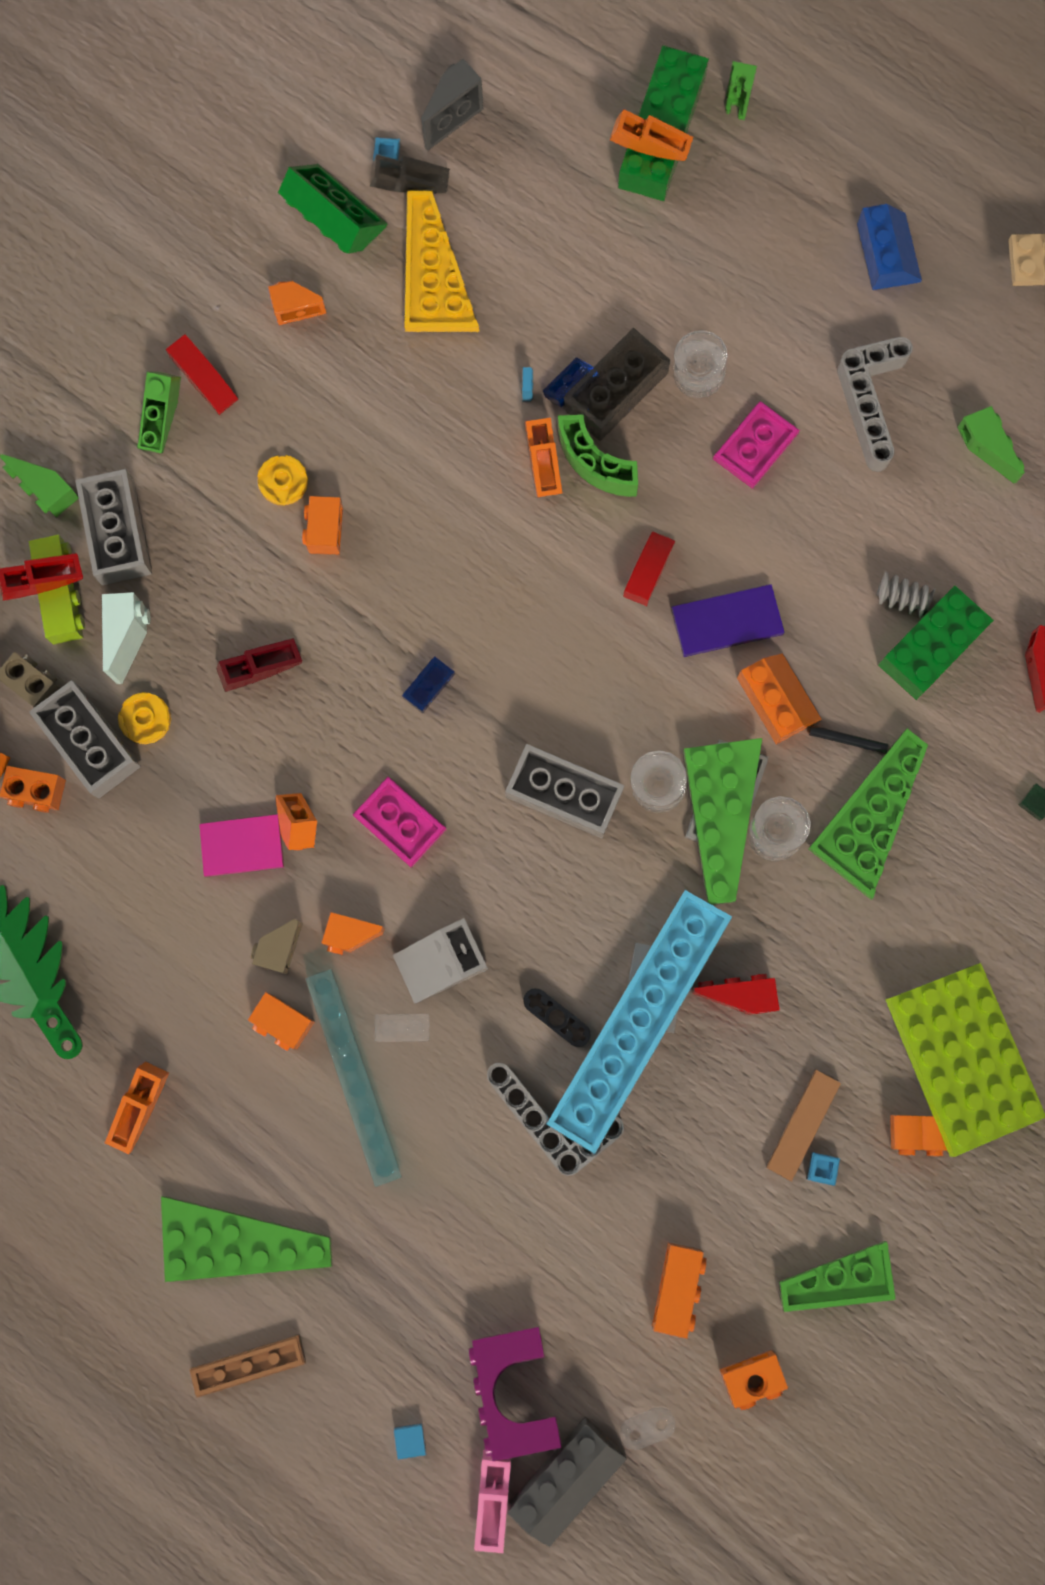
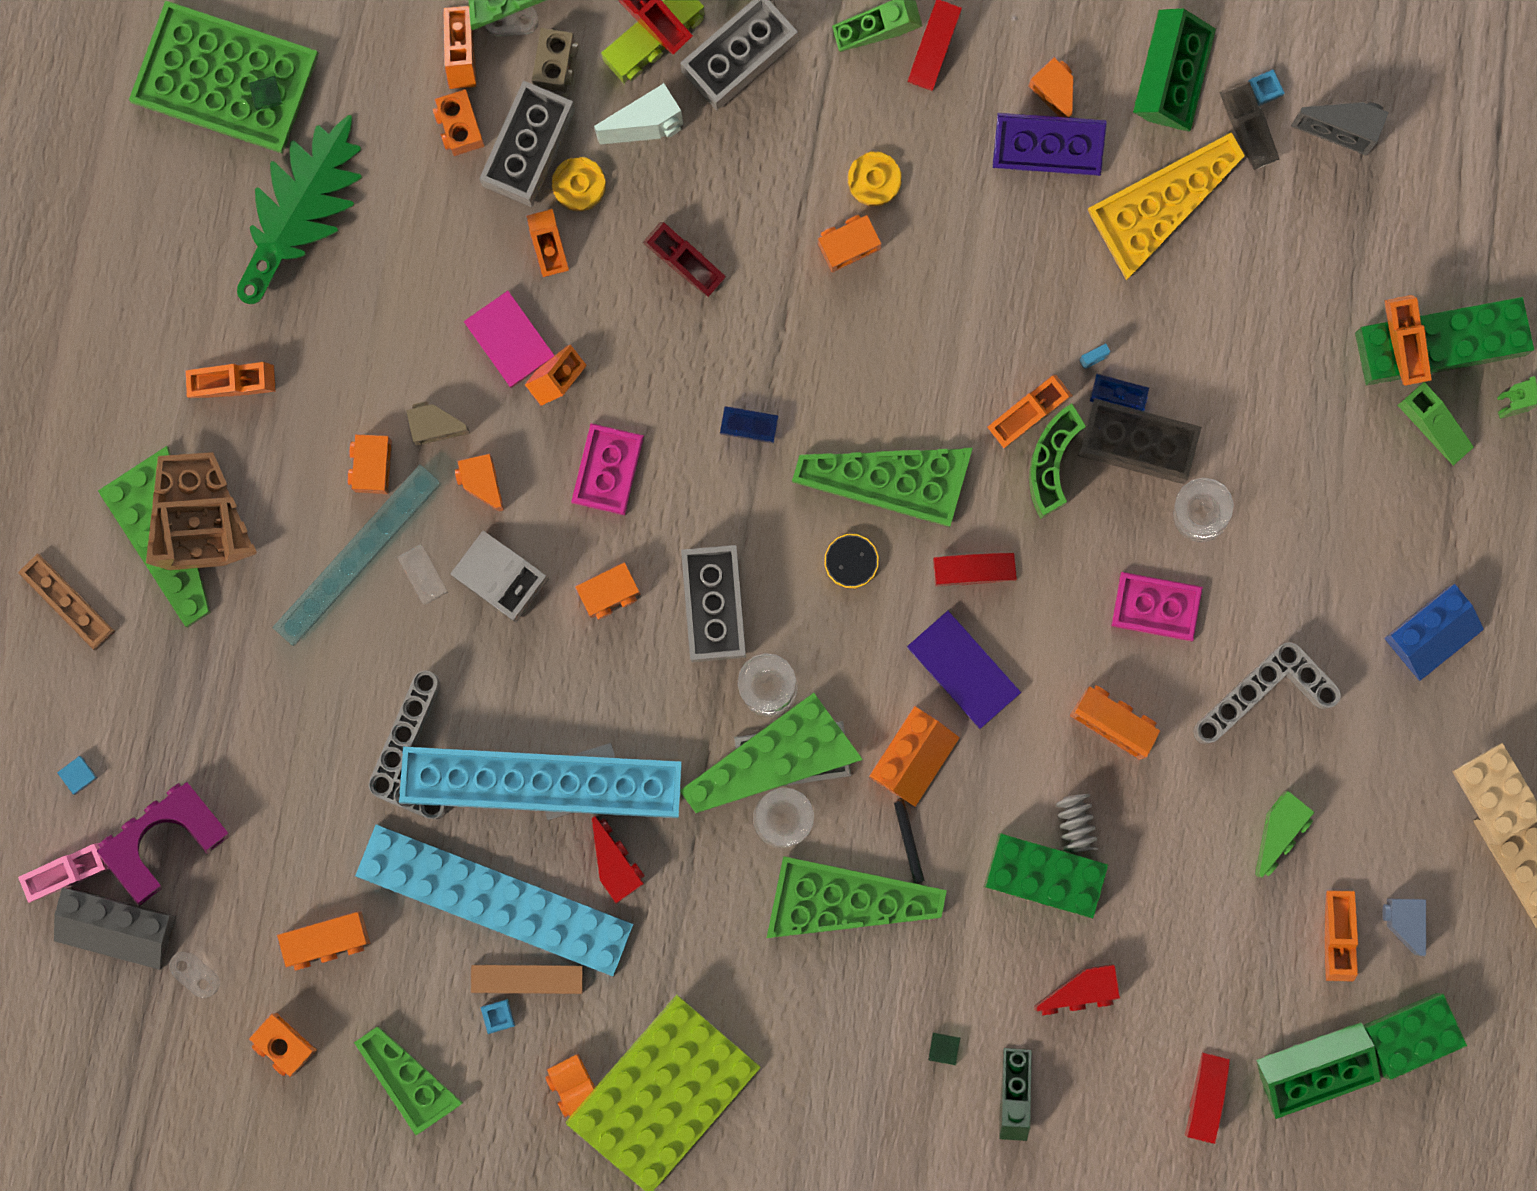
camera: 65 degrees right, 5 degrees up
(178, 768) = (547, 242): none -> orange slope
(237, 1204) = (194, 516): none -> medium nougat wedge
(335, 329) = (1049, 144): none -> dark purple tile
(504, 875) = (608, 591): none -> orange brick
(545, 586) = (904, 481): none -> bright green wing
(556, 1006) = (516, 688): black beam -> none
(588, 663) = (851, 561): none -> black tile
(718, 1118) = (494, 900): none -> medium azure plate
(721, 161) = (1436, 423): none -> bright green slope
(837, 521) = (1116, 722): none -> orange slope

